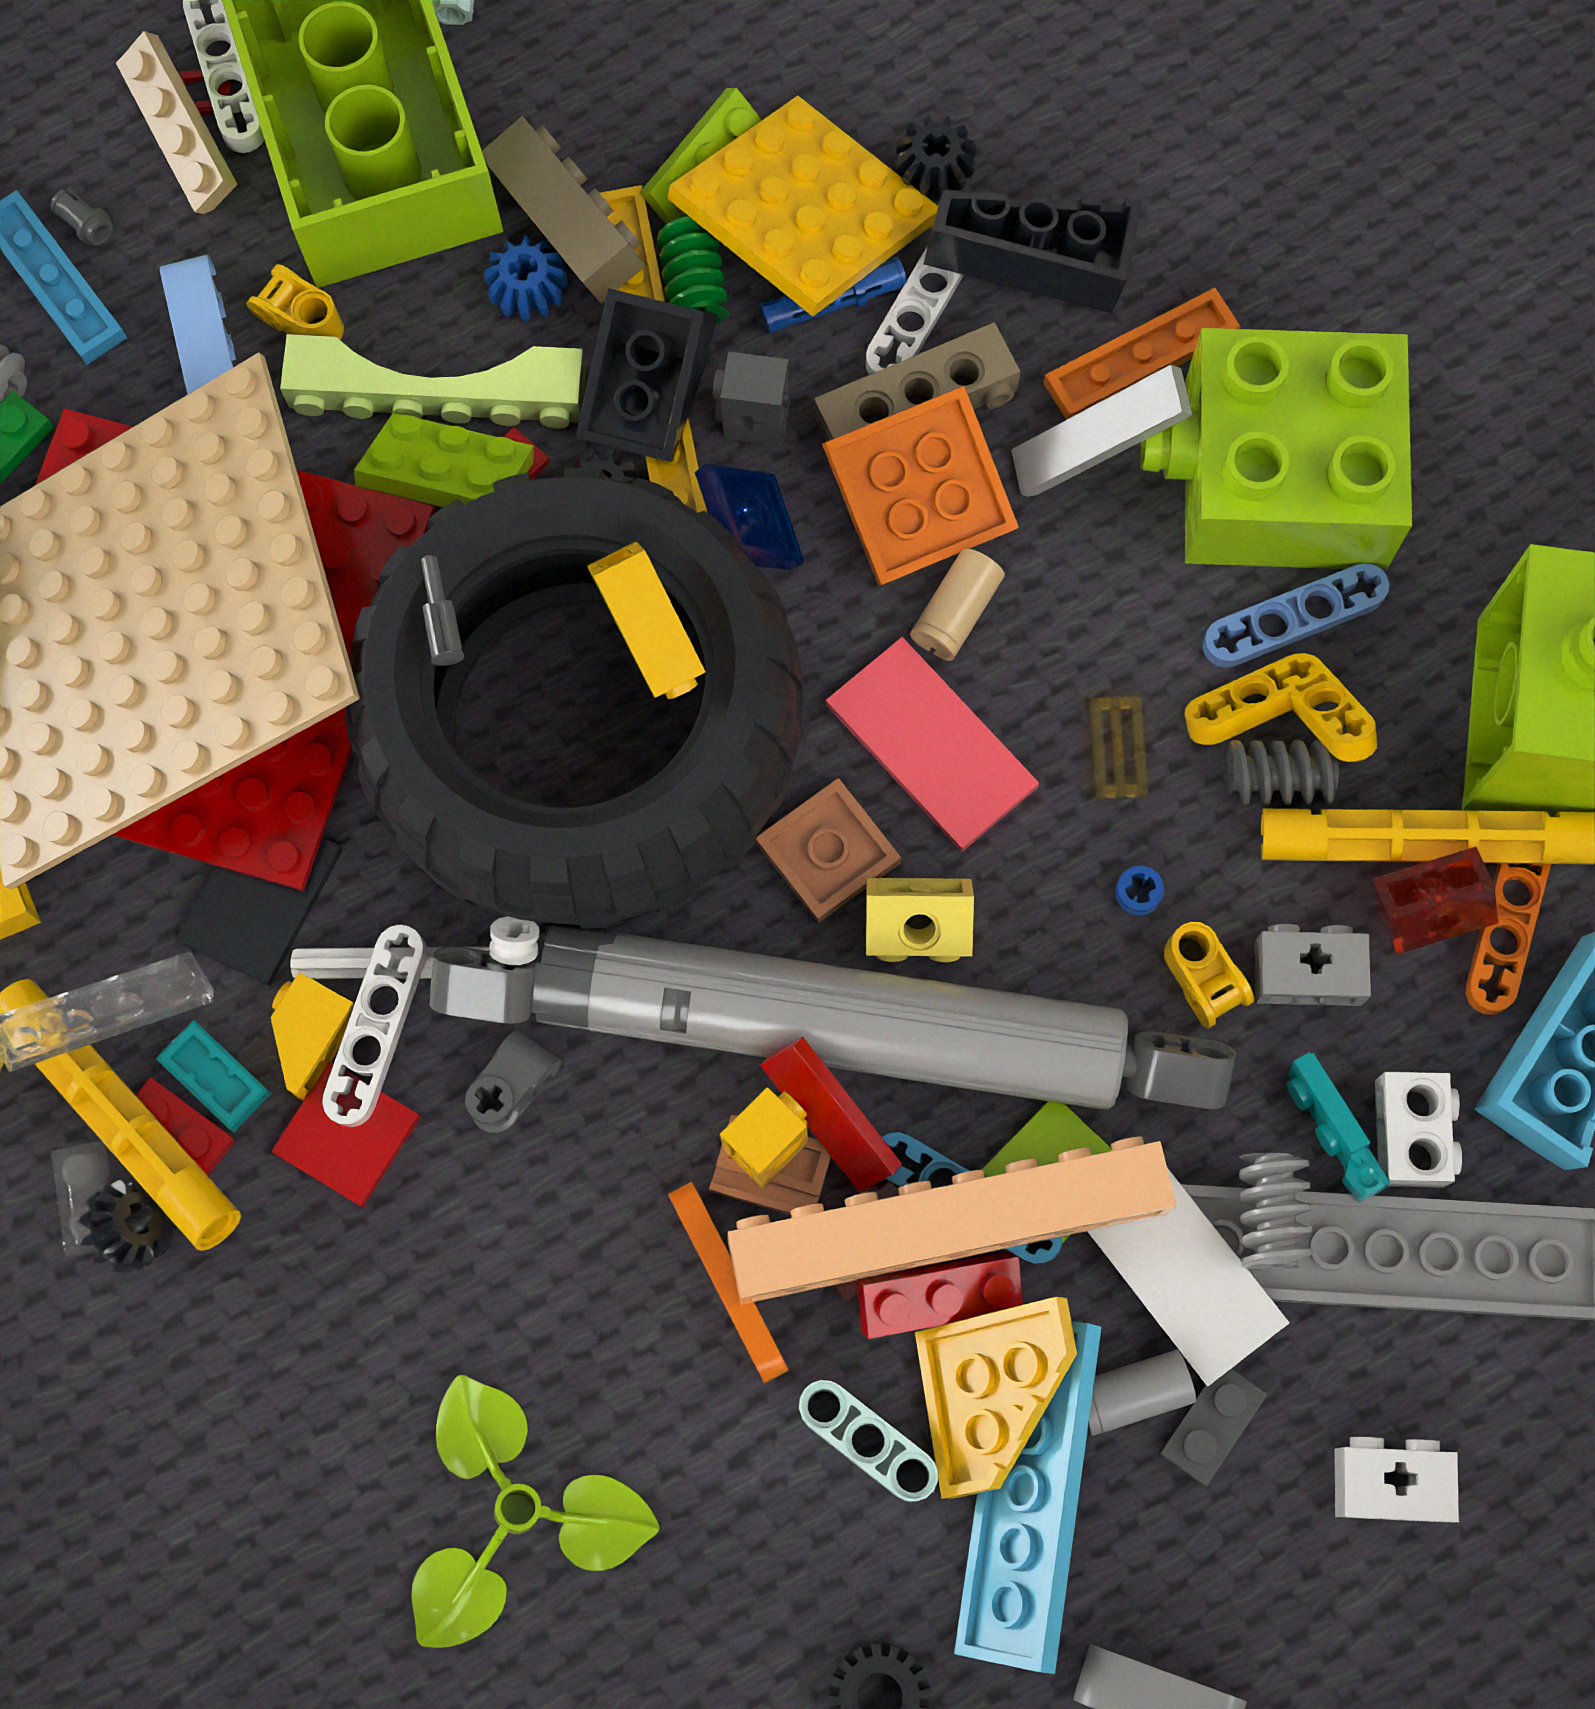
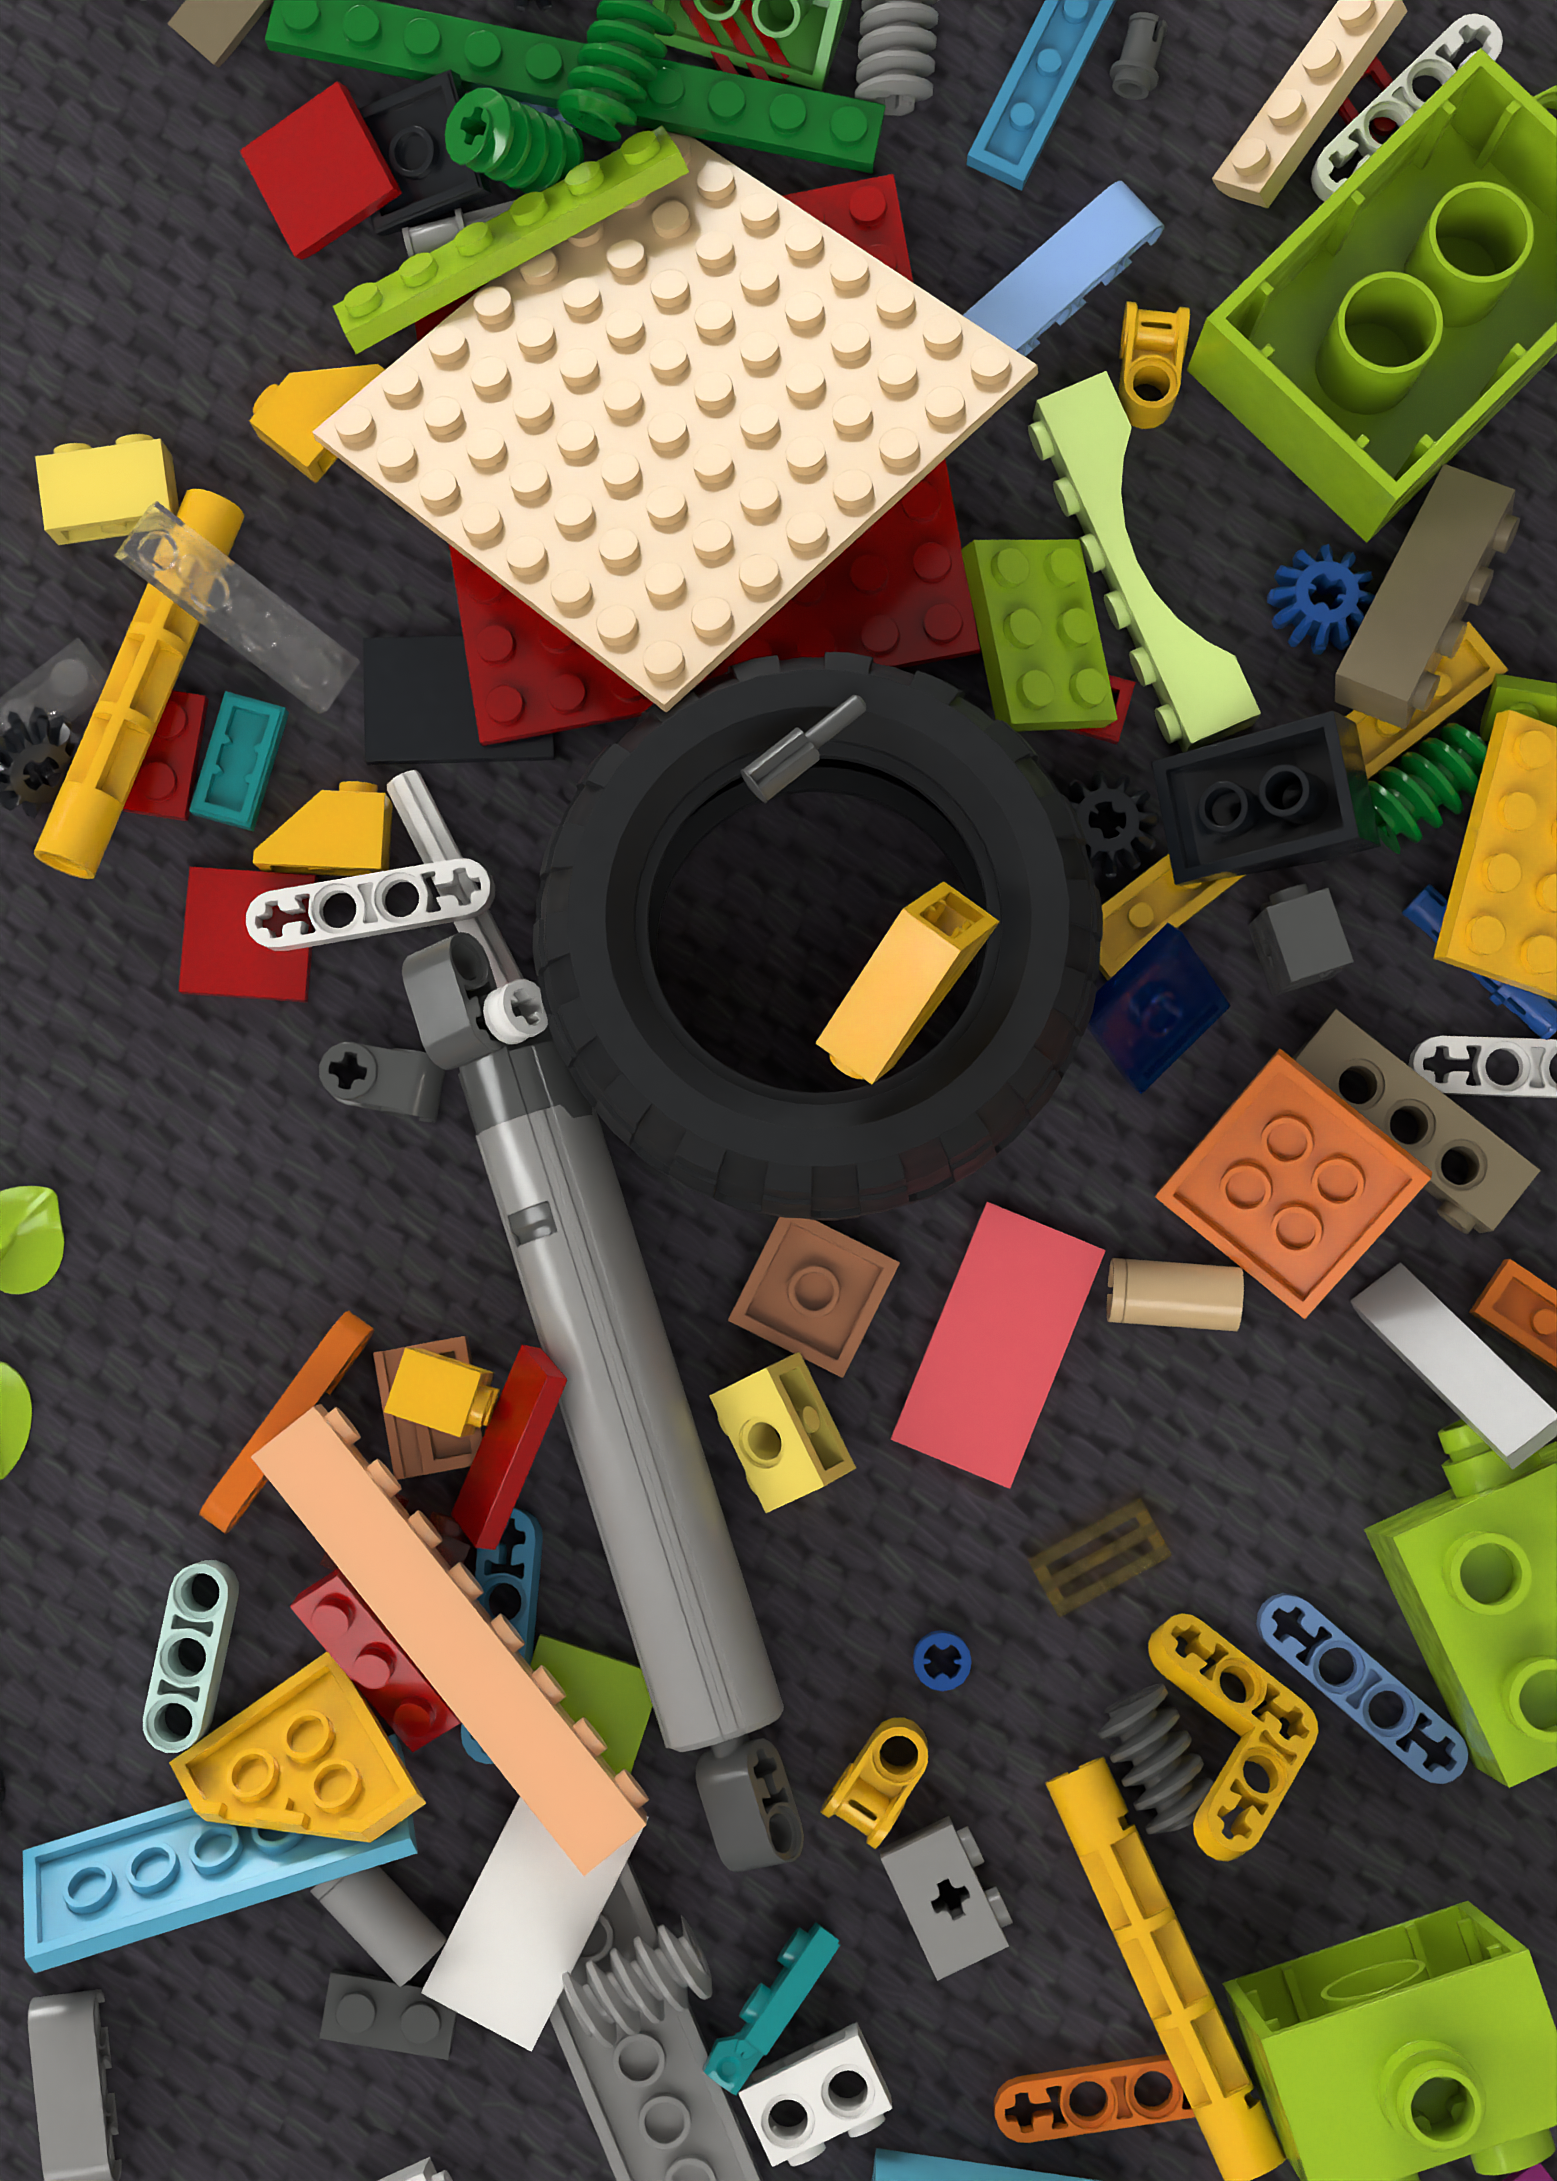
camera: 65 degrees right, 10 degrees up
(1436, 900) = (1087, 2005): clear red brick -> none

